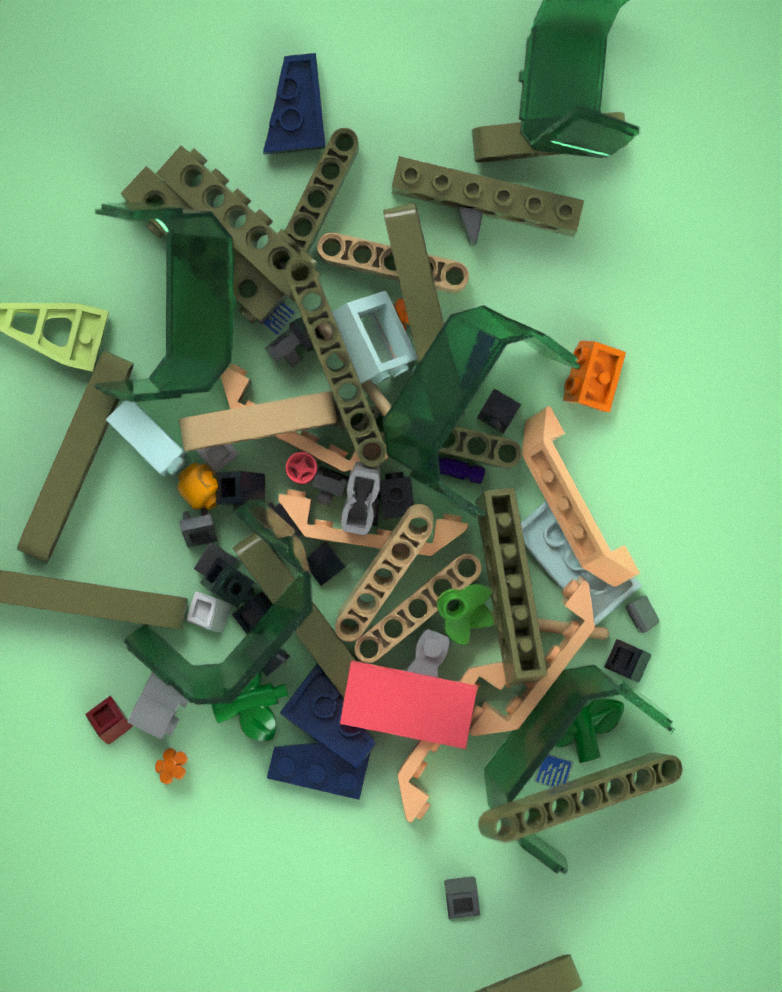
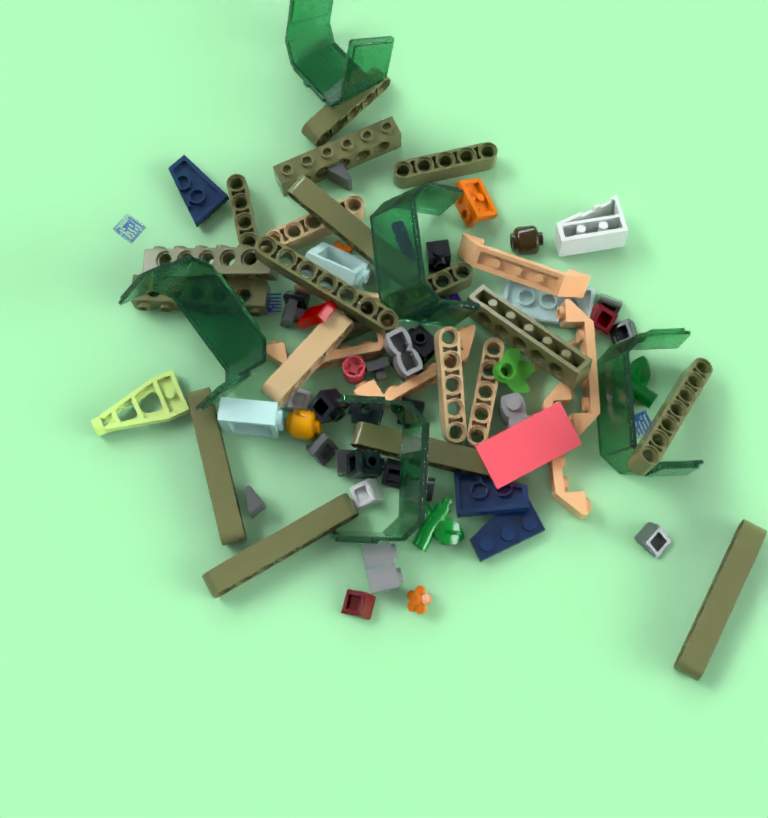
camera: 35 degrees left, 15 degrees down
(84, 529) = (254, 502): none -> dark grey slope
(188, 94) = (129, 228): none -> clear tile
(304, 380) = (316, 315): none -> red tile
(612, 469) = (526, 240): none -> dark brown head
(615, 304) = (453, 158): none -> olive beam
(615, 626) = (603, 318): none -> dark red slope
(693, 519) = (593, 230): none -> white wedge

